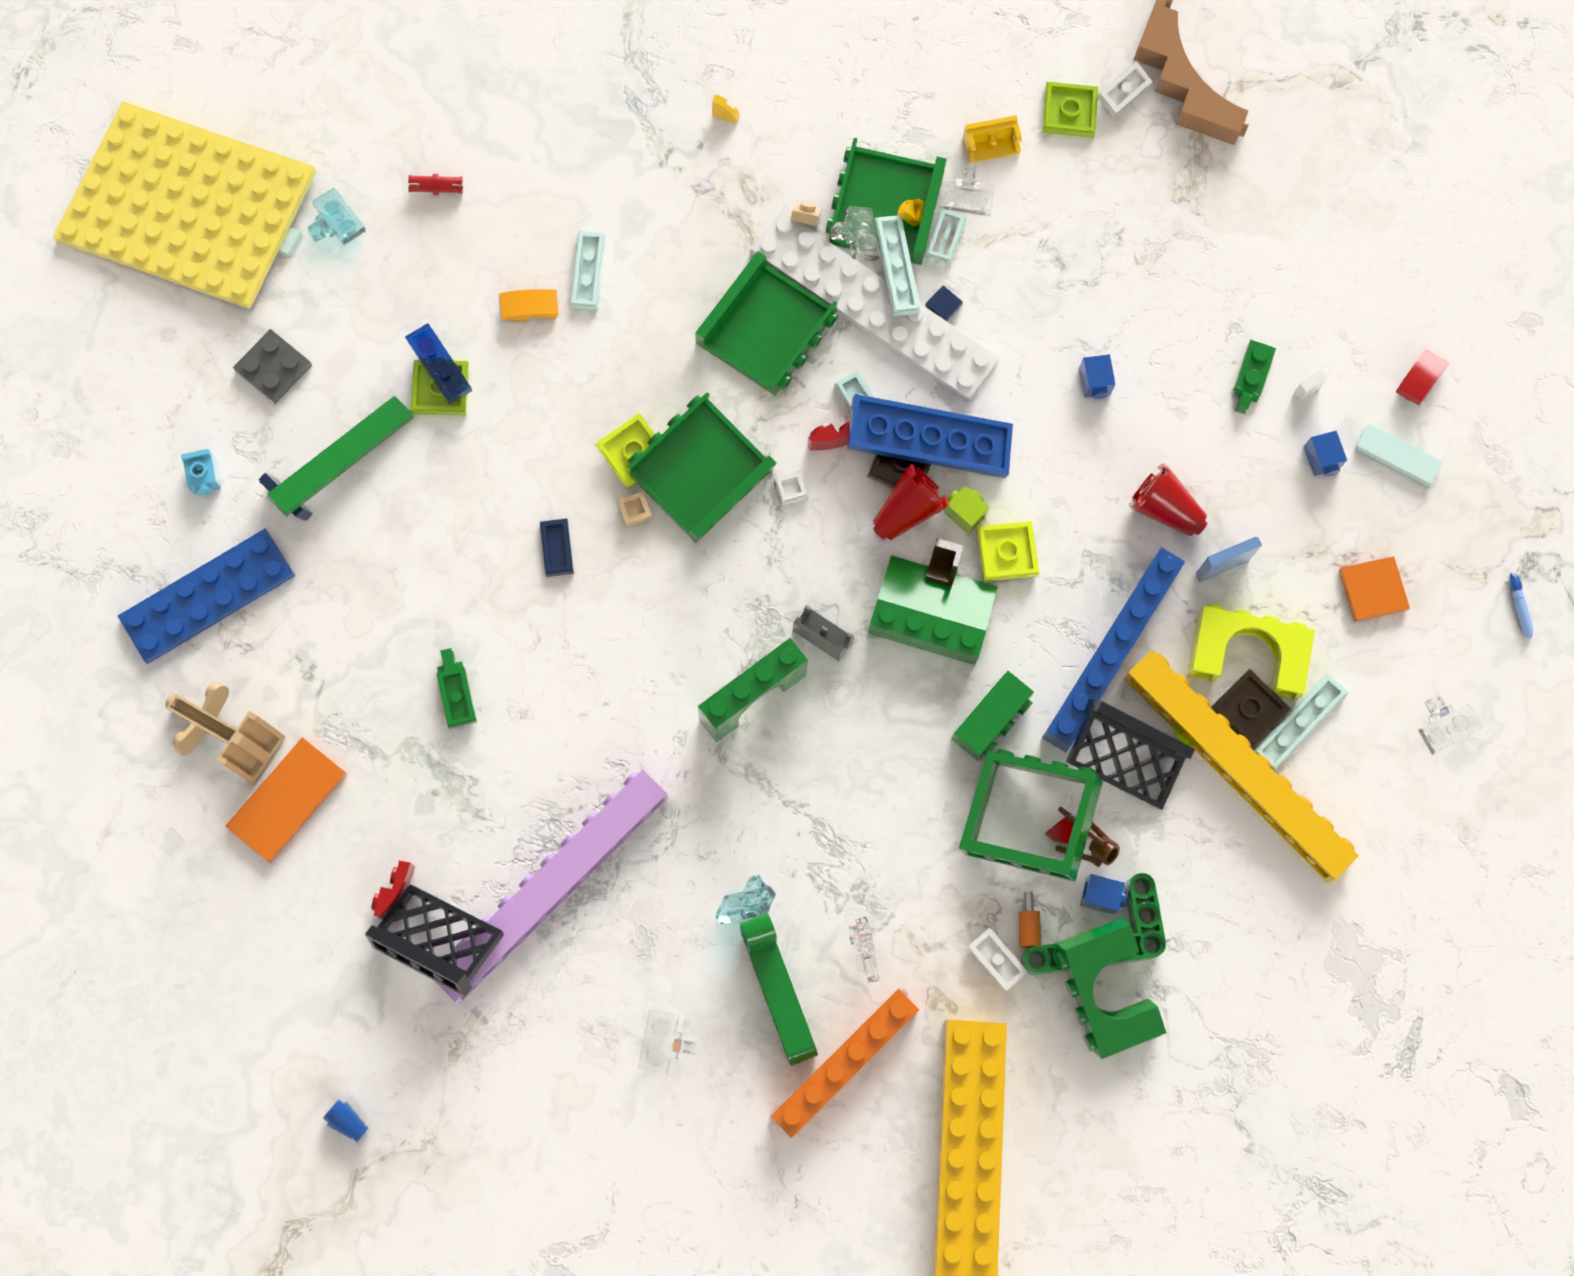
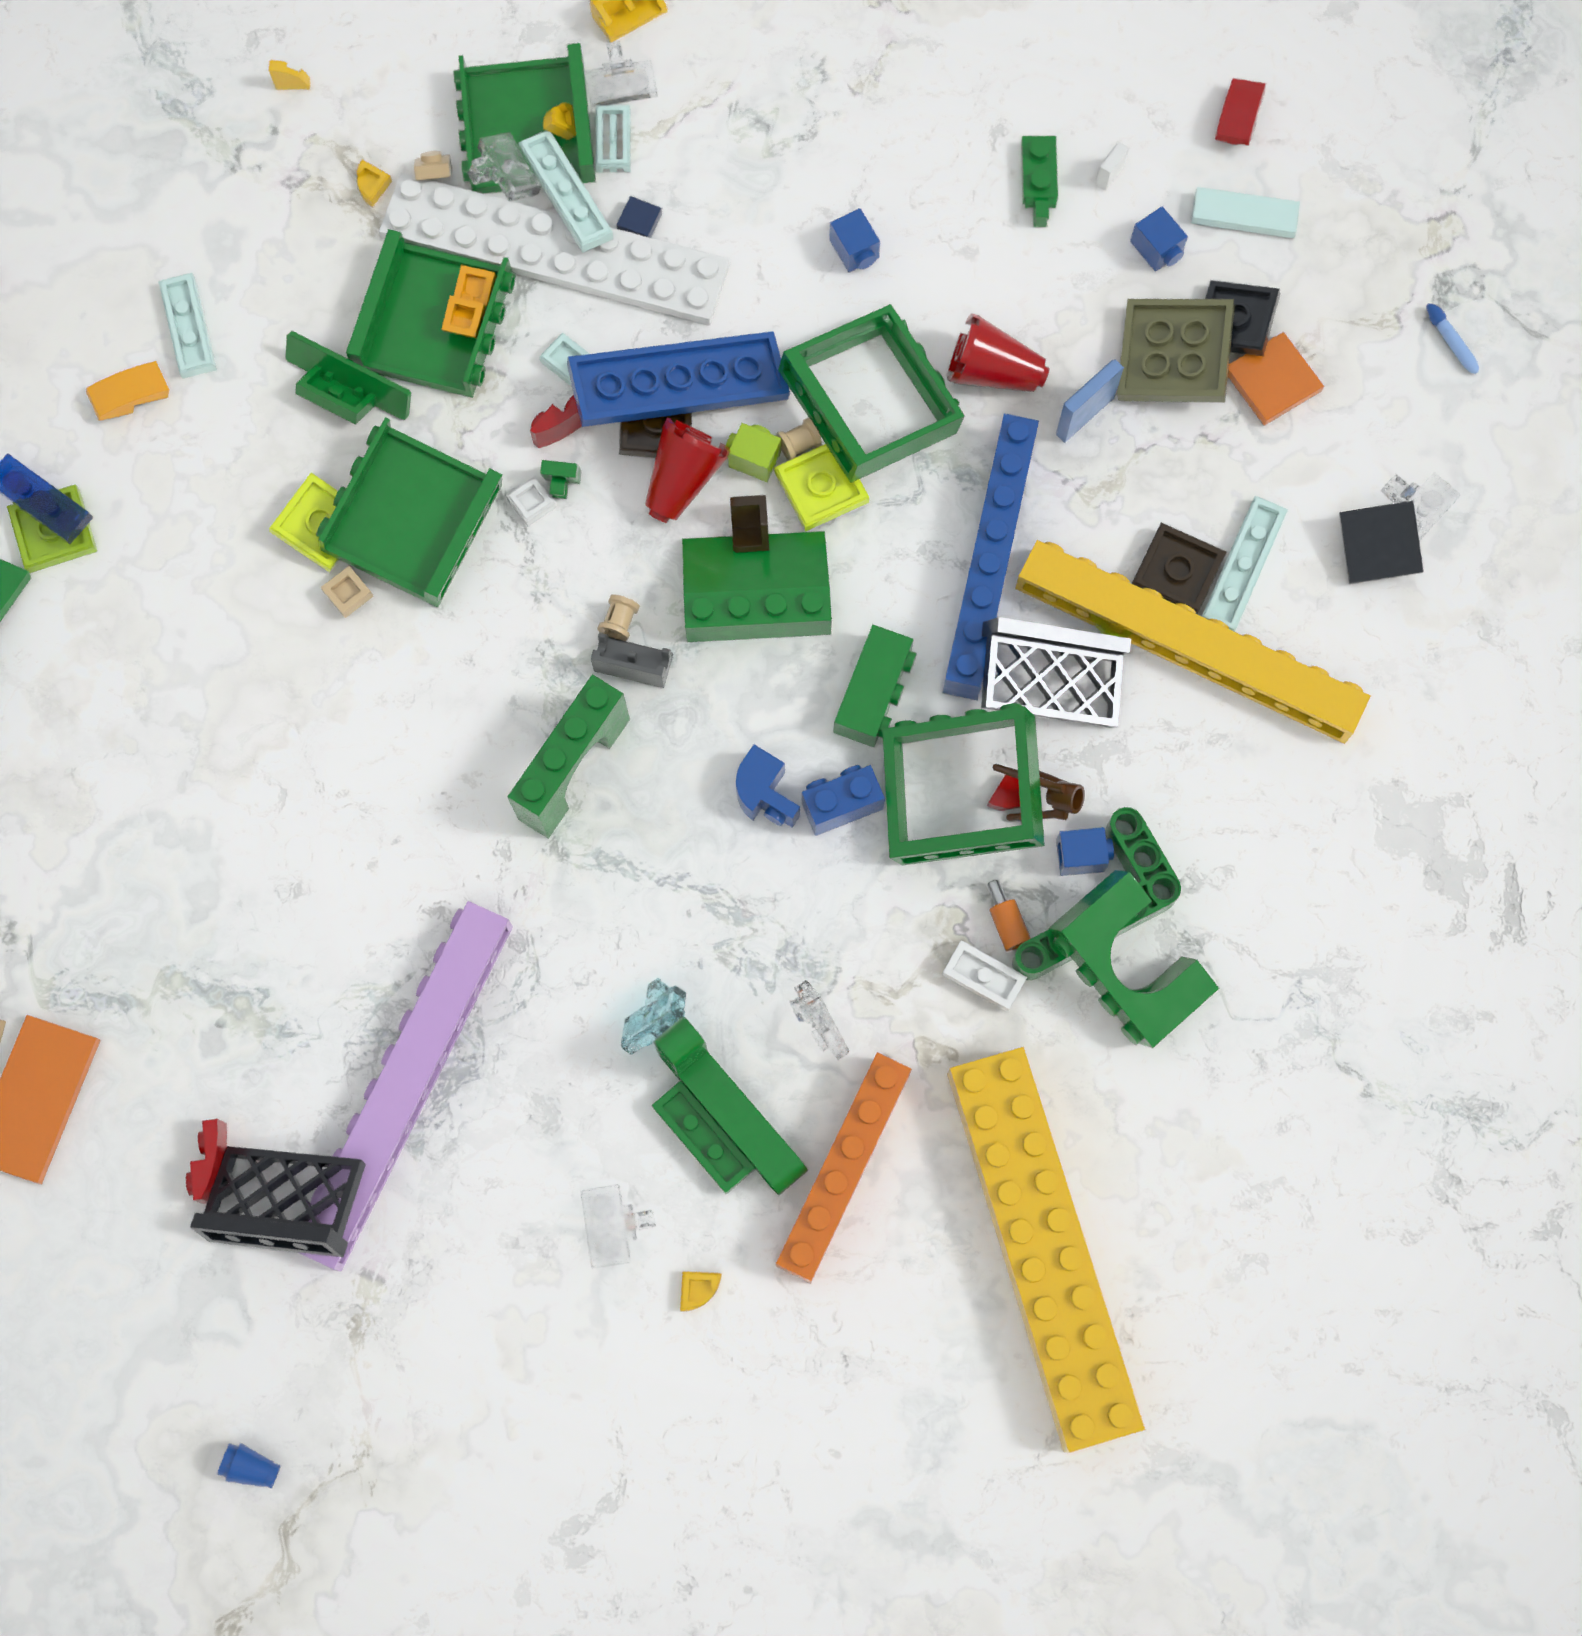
camera: 15 degrees left, 0 degrees up
(455, 691) = (201, 890): green hinge -> none
(556, 547) = (267, 672): dark blue tile -> none
(684, 354) = (343, 384): none -> green bracket
(708, 1112) = (698, 1289): none -> yellow tile
(751, 1003) = (703, 1137): none -> green plate
(757, 209) = (371, 182): none -> yellow tile
(798, 325) = (470, 301): none -> light orange slope
(818, 478) = (560, 475): none -> green tile
(824, 598) = (618, 617): none -> tan bush
(880, 757) = (755, 788): none -> blue brick
(939, 792) = (842, 799): none -> blue brick
(1003, 511) = (799, 439): none -> tan bush
(1028, 505) = (831, 427): none -> green window
(1289, 644) = (1195, 475): neon yellow arch -> none
(1307, 543) = (1176, 350): none -> olive plate
(1362, 533) = (1252, 314): none -> black tile
(1409, 742) = (1381, 542): none -> black tile

